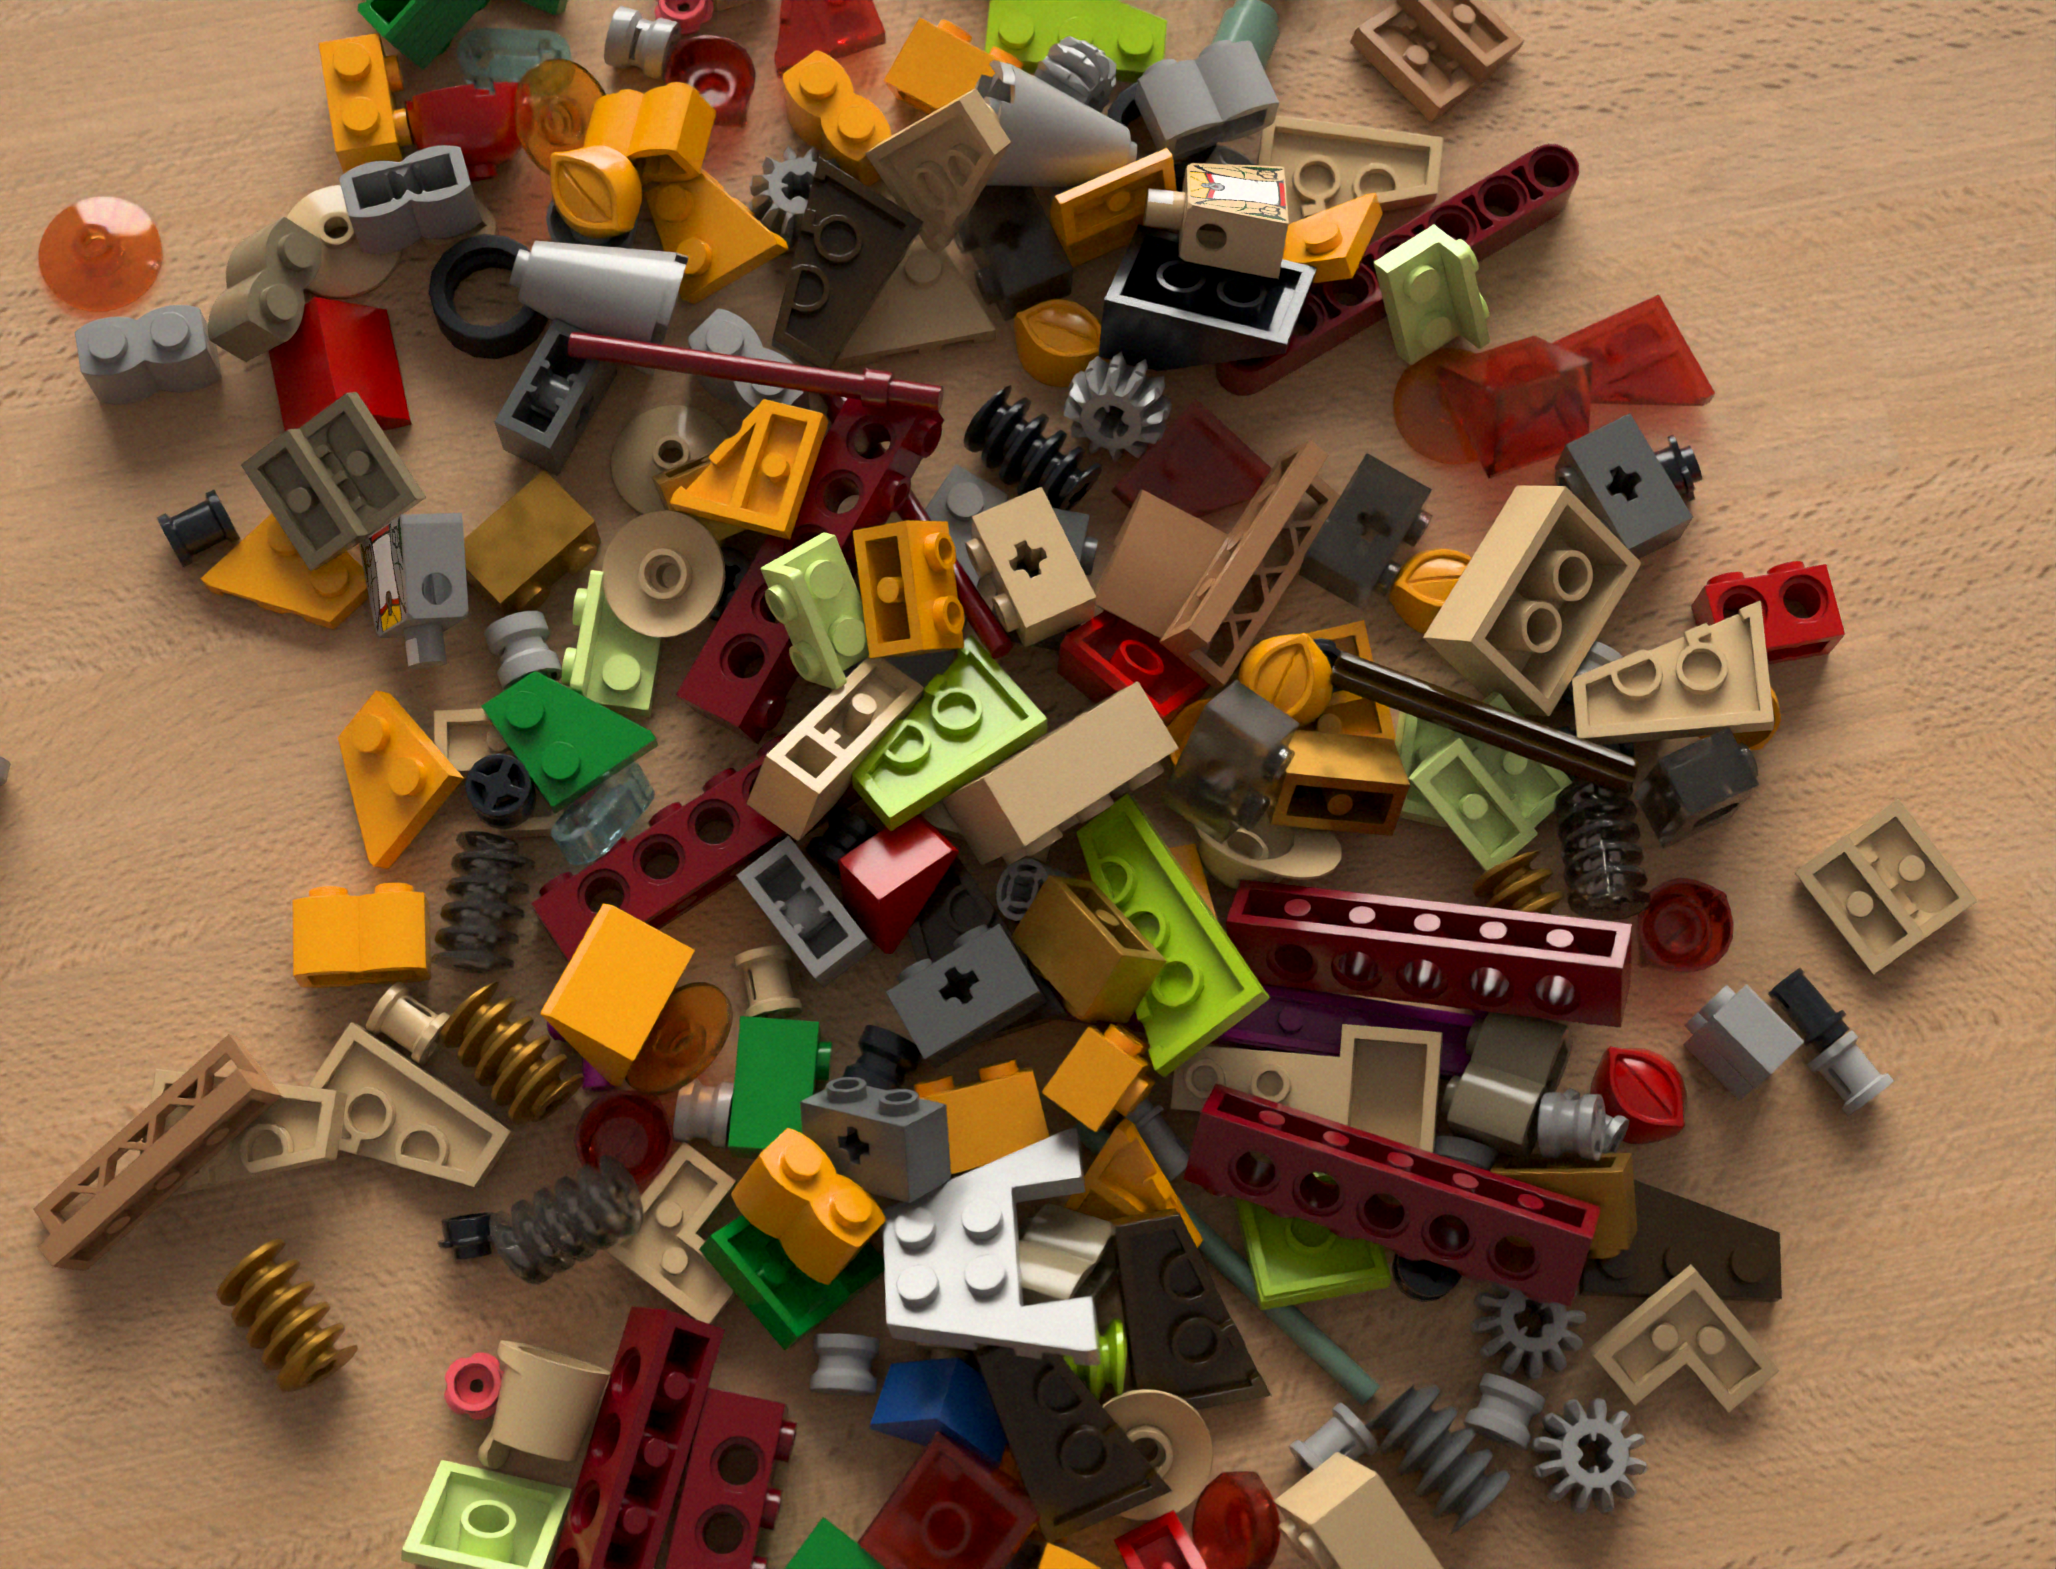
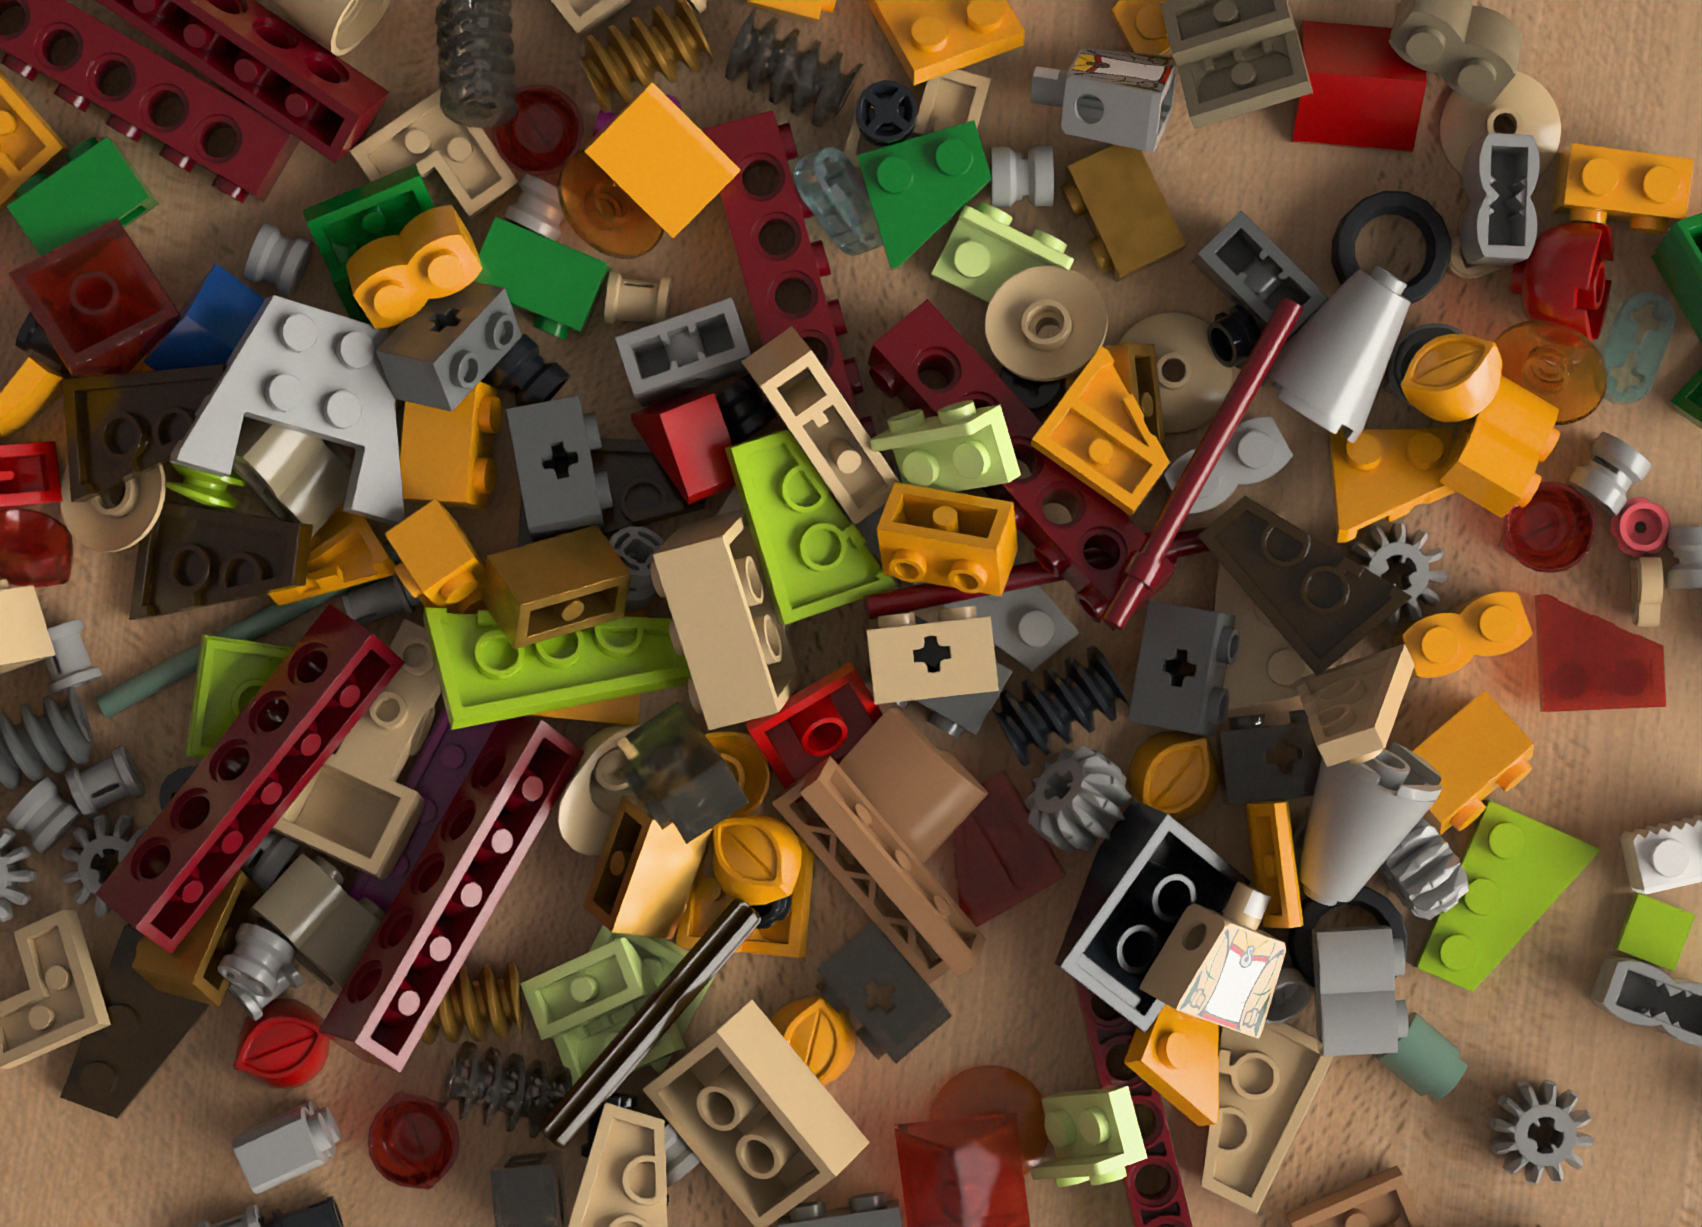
camera: 115 degrees right, 15 degrees up
(620, 407) = (1233, 336): none -> black plate
(995, 345) = (1172, 699): none -> dark grey brick
(1448, 1361) = (105, 783): none -> light grey bush

